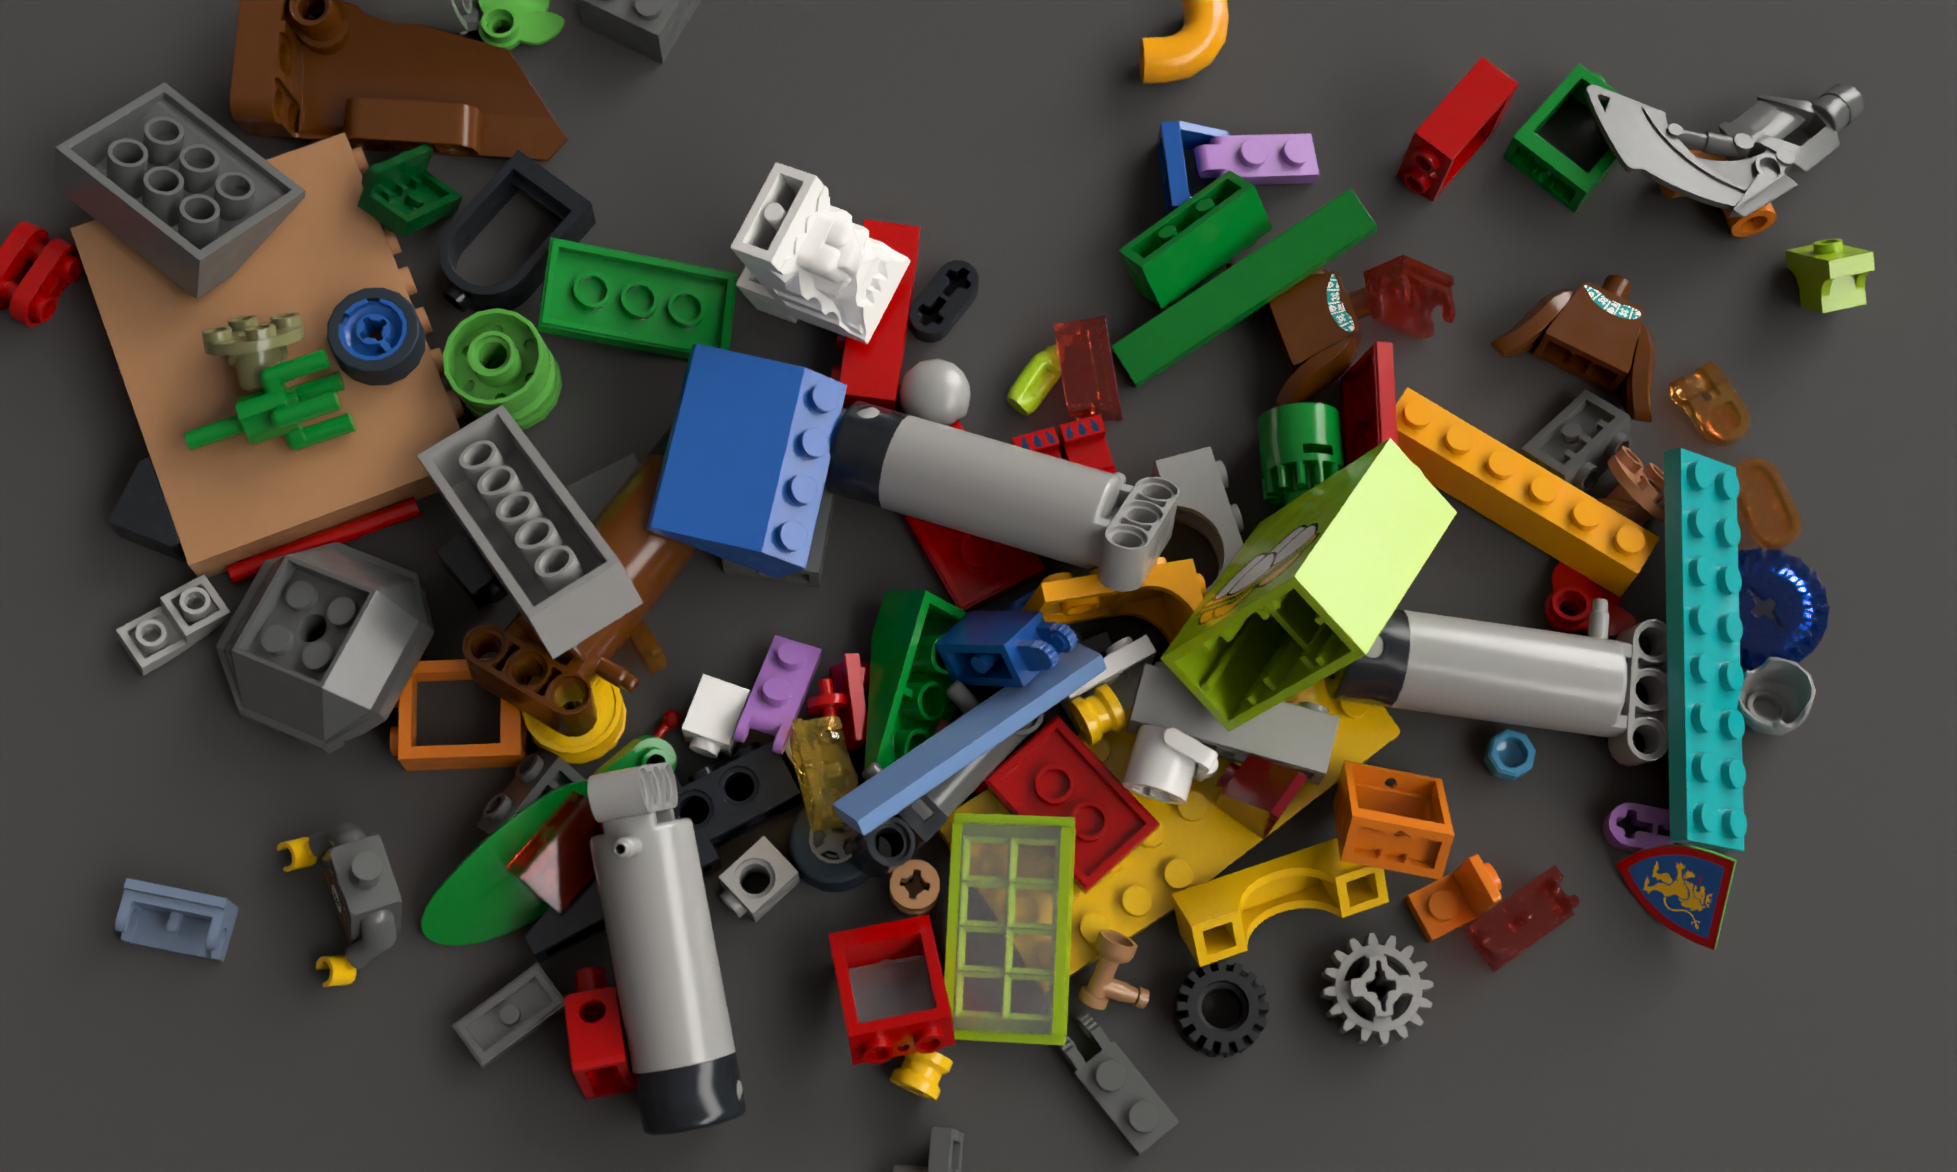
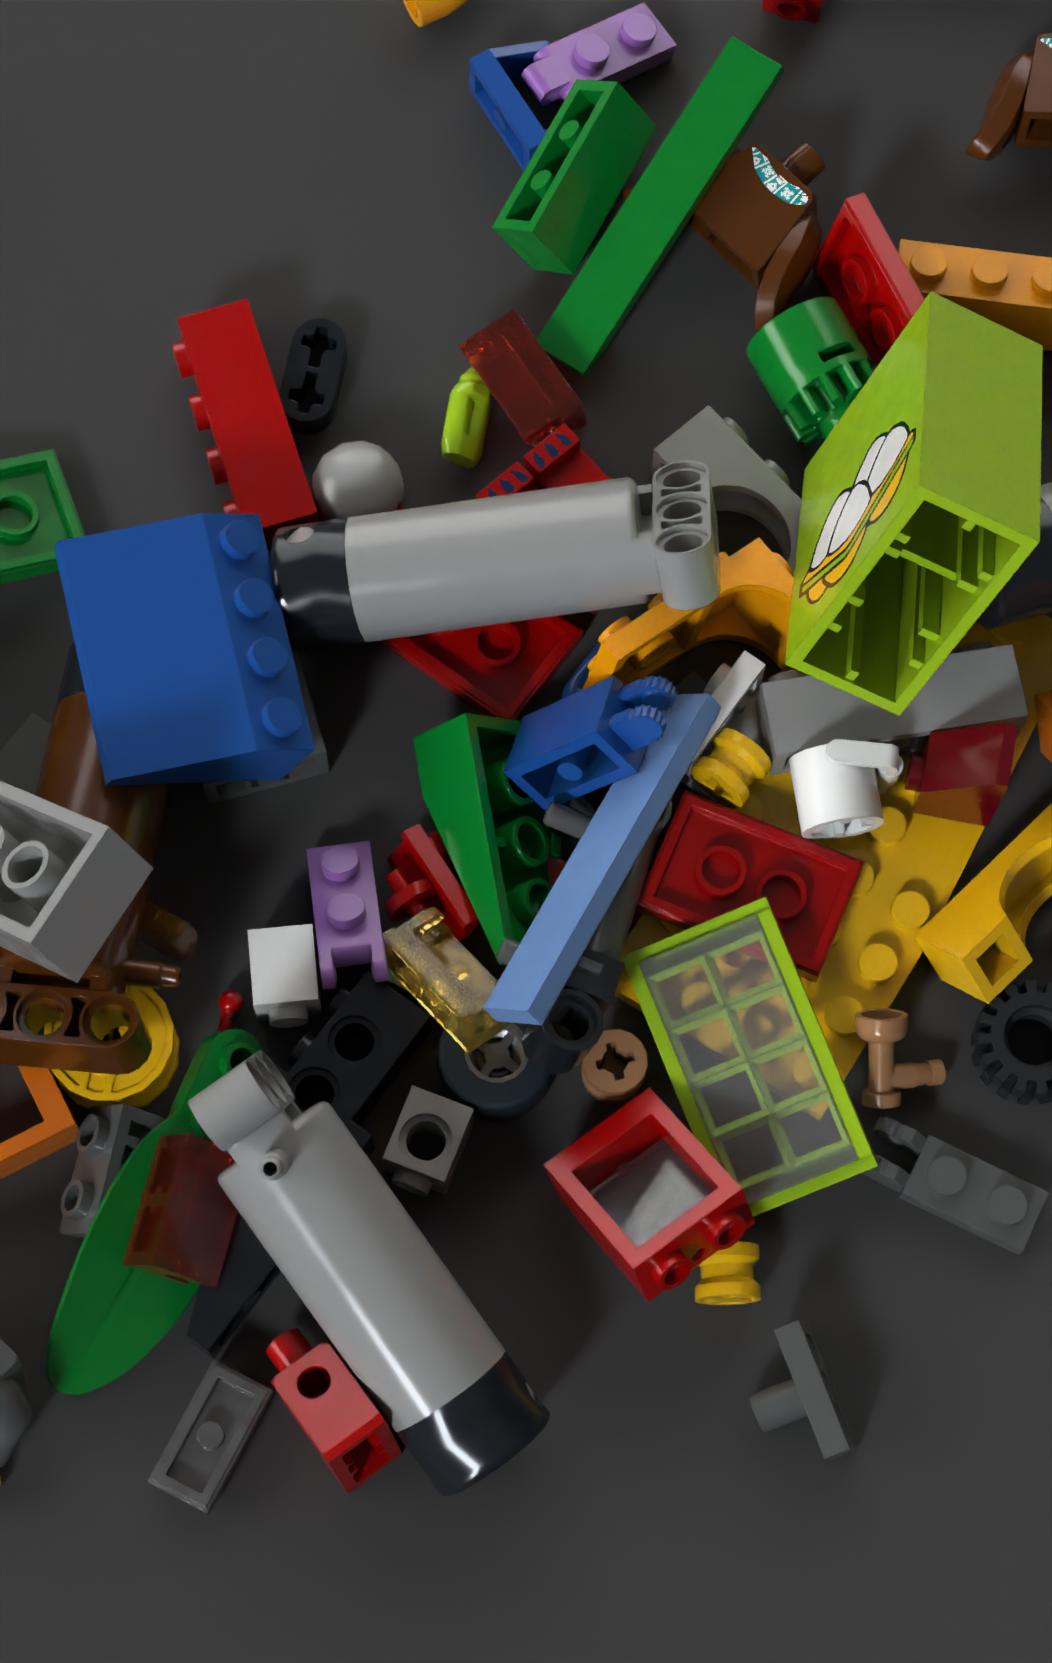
camera: 20 degrees left, 0 degrees up
(812, 259) = (147, 384): white brick -> none
(1406, 293) = (845, 132): clear red hinge -> none

